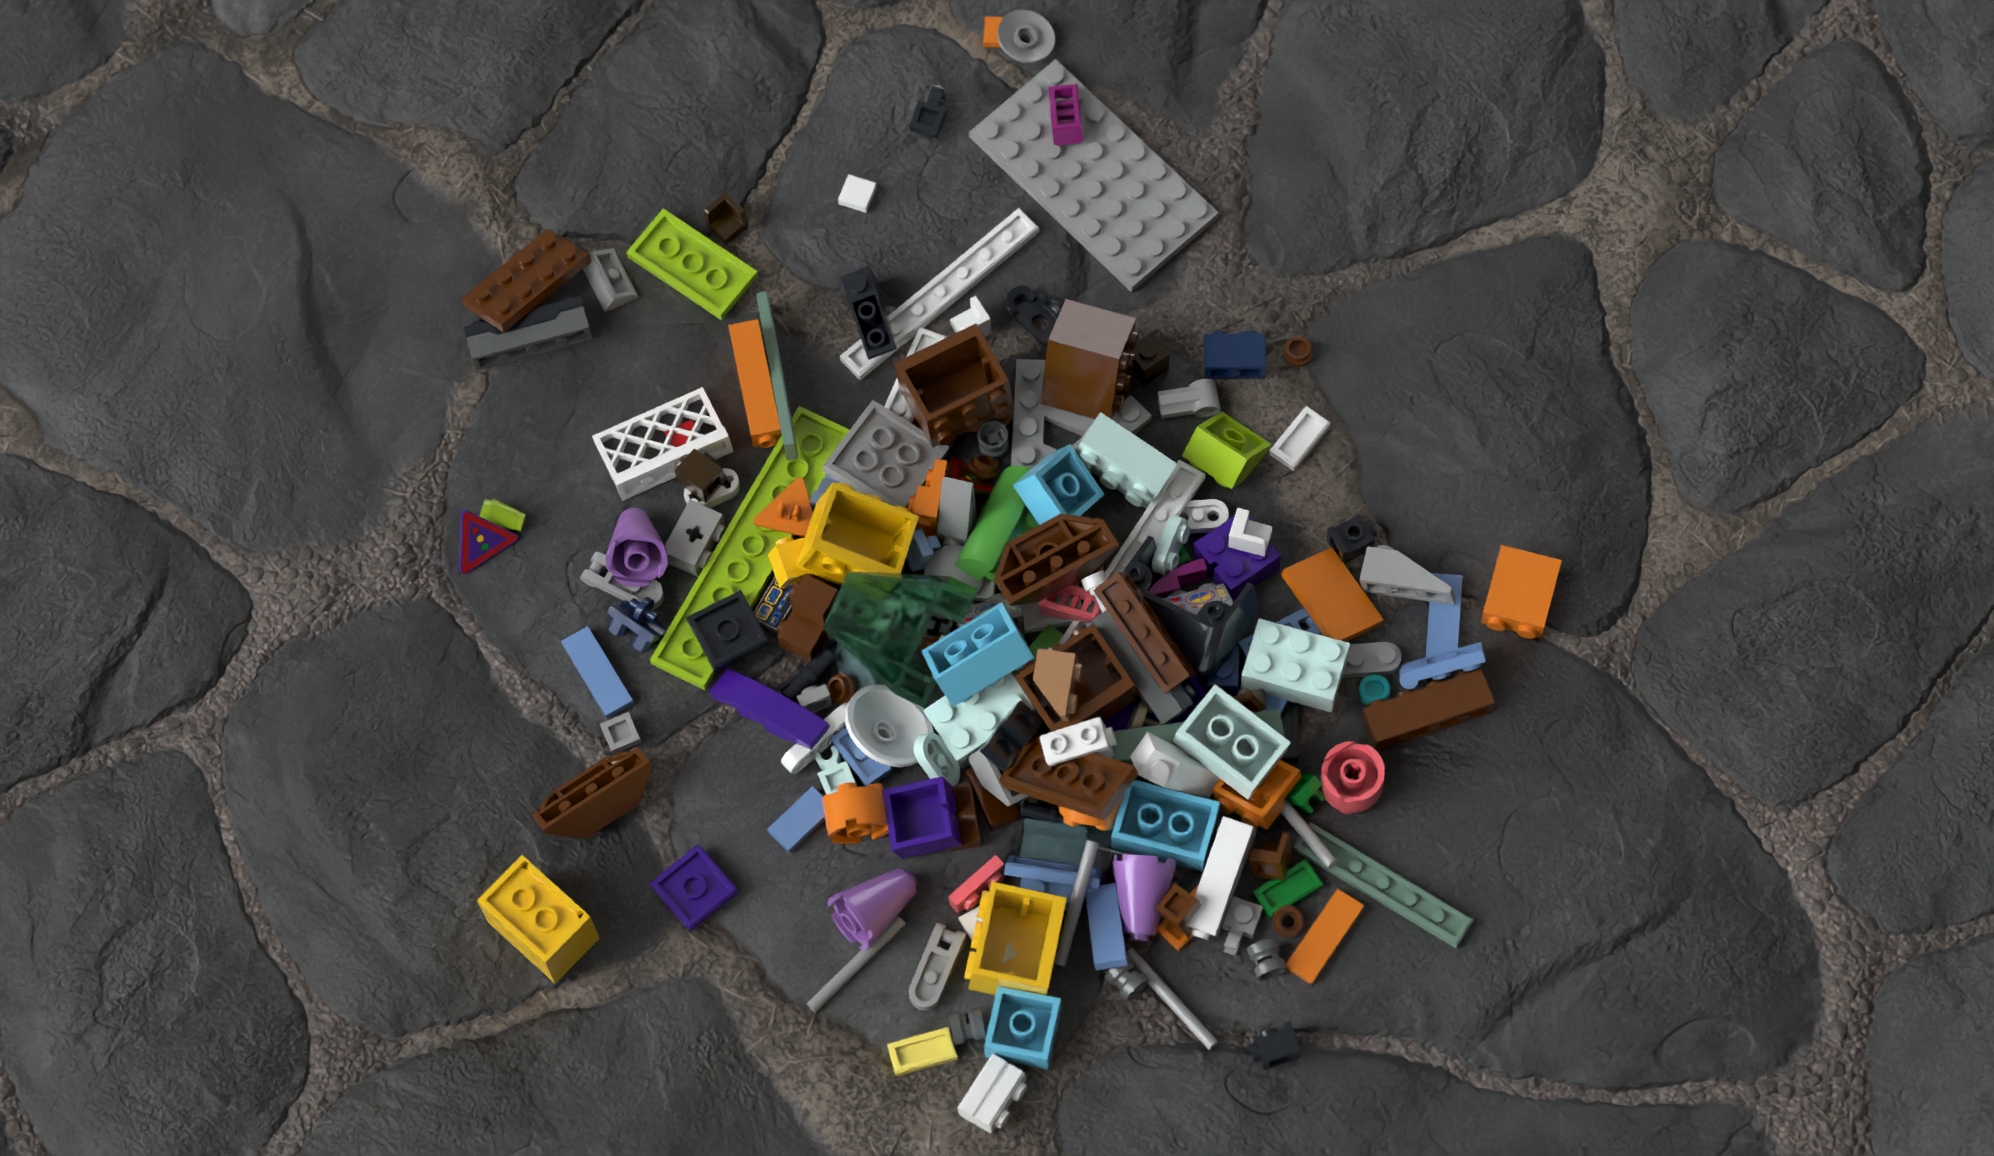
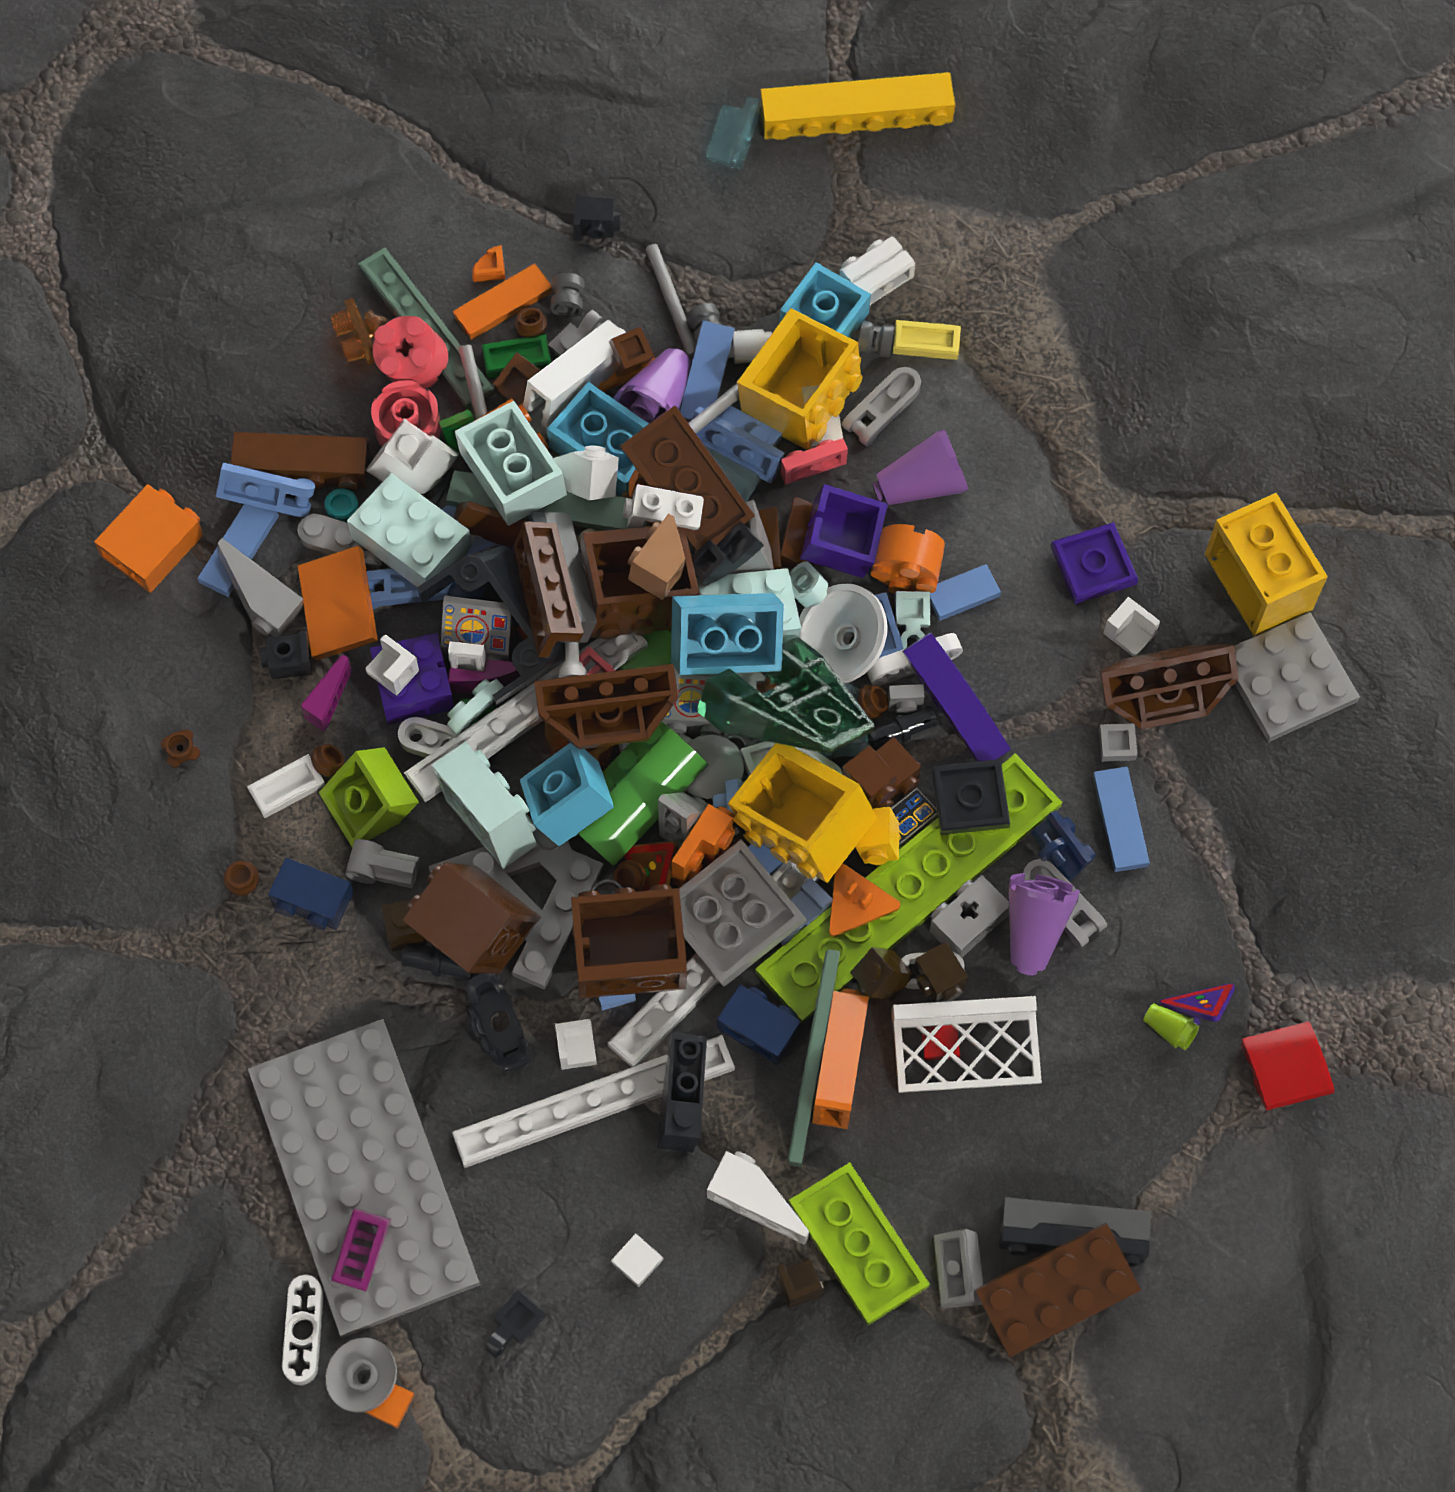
camera: 165 degrees left, 0 degrees up
(398, 521) = (1287, 1066): none -> red slope
(486, 845) = (1291, 677): none -> light grey plate
(643, 840) = (1131, 627): none -> white panel
(747, 459) = (881, 974): none -> dark brown brick
(788, 266) = (749, 1192): none -> white slope
(832, 391) = (759, 1023): none -> dark blue brick
(853, 966) = (985, 429): light grey bar -> none
(1077, 974) = (747, 344): none -> white brick
(1087, 43) = (310, 1357): none -> white beam
(1194, 575) = (467, 656): none -> white tile
(1275, 465) = (327, 760): none -> reddish brown plate
(1302, 507) = (324, 698): none -> magenta slope
(1326, 734) = (413, 458): none -> white brick
(1353, 969) = (489, 266): none -> orange tile
(1378, 837) = (410, 351): none -> coral brick
(1401, 424) = (176, 739): none -> reddish brown plate
(1428, 839) = (351, 320): none -> clear orange hips

